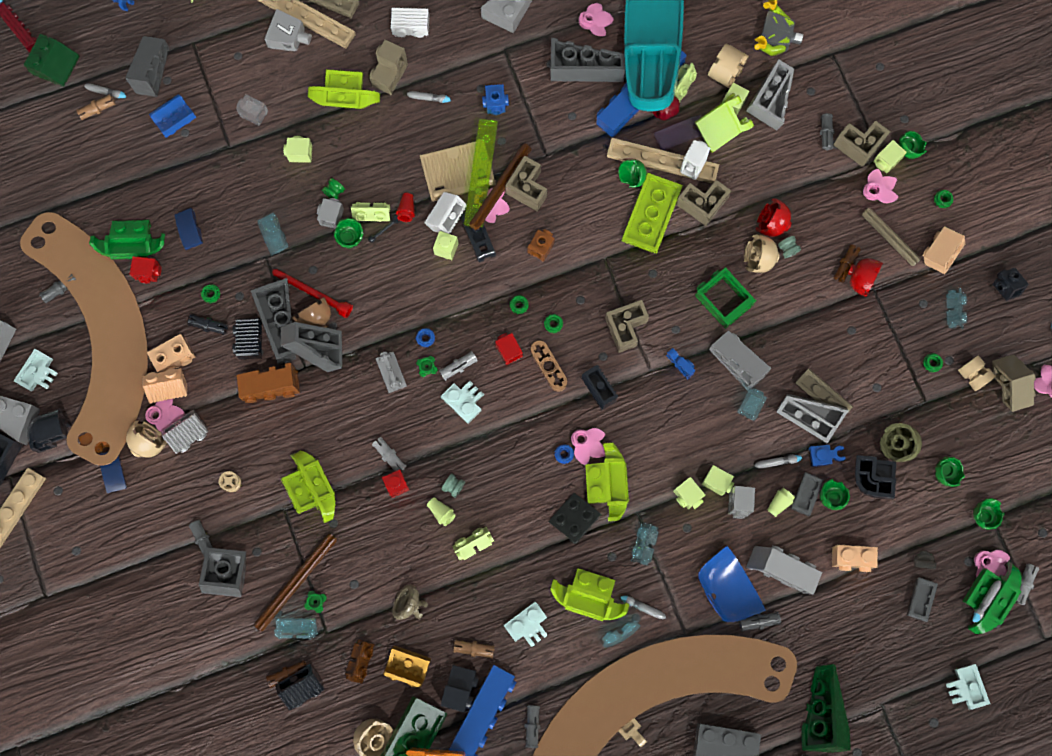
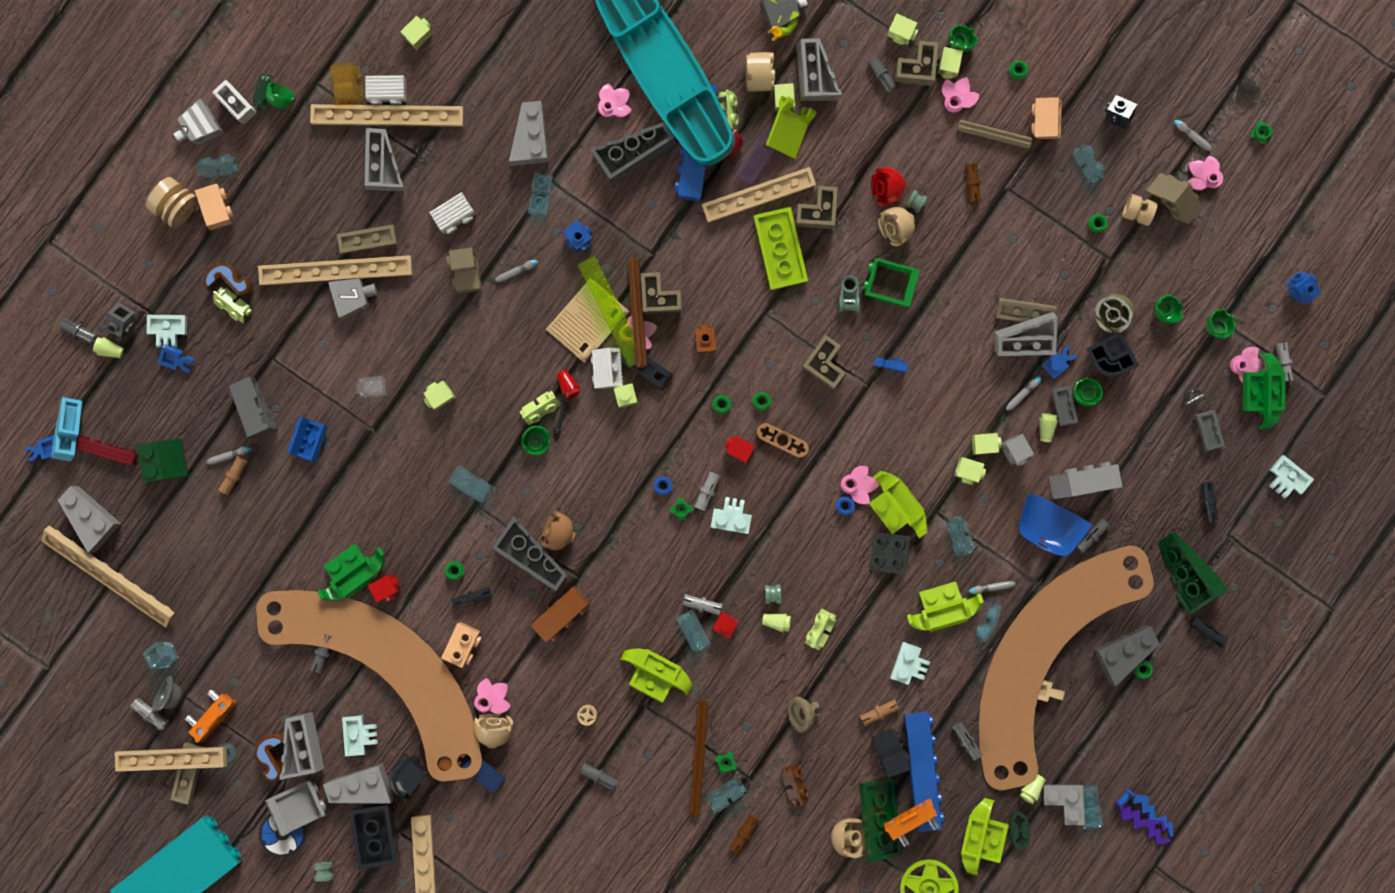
camera: 30 degrees left, 10 degrees up
(164, 385) = (476, 674): light nougat brick -> none
(185, 432) = (521, 700): light grey brick -> none
(188, 229) = (394, 528): dark blue slope -> none
(223, 572) = (636, 790): dark grey slope -> none
(248, 338) = (515, 587): black brick -> none
(300, 687) = (763, 837): black brick -> none
(315, 344) = (579, 557): dark grey wedge -> none
(330, 212) = (506, 432): light grey brick -> none
(333, 189) = (494, 411): green wheel -> none
(343, 90) = (439, 316): lime plate -> none
(343, 308) = (576, 508): red piece -> none
(366, 471) = (693, 630): none -> clear light blue hinge
(391, 371) = (654, 534): light grey hinge -> none
(407, 667) = (836, 763): pearl gold bracket -> none
(491, 50) = (540, 194): none -> clear light blue slope
(599, 387) = (838, 431): black brick -> none
(632, 173) = (741, 224): green hair -> none
(682, 287) = (849, 296): none -> sand green piece
(695, 159) = (789, 180): white brick -> none
(739, 360) = (938, 329): light grey wedge -> none
(752, 404) = (972, 360): clear light blue brick -> none
(854, 557) = (1136, 432): light nougat brick -> none
(864, 275) = (995, 186): red cylinder -> none
(866, 108) = (902, 30): none -> yellowish green brick
(883, 661) = (1209, 502): none -> black pin
(979, 612) = (1262, 397): light grey piece -> none

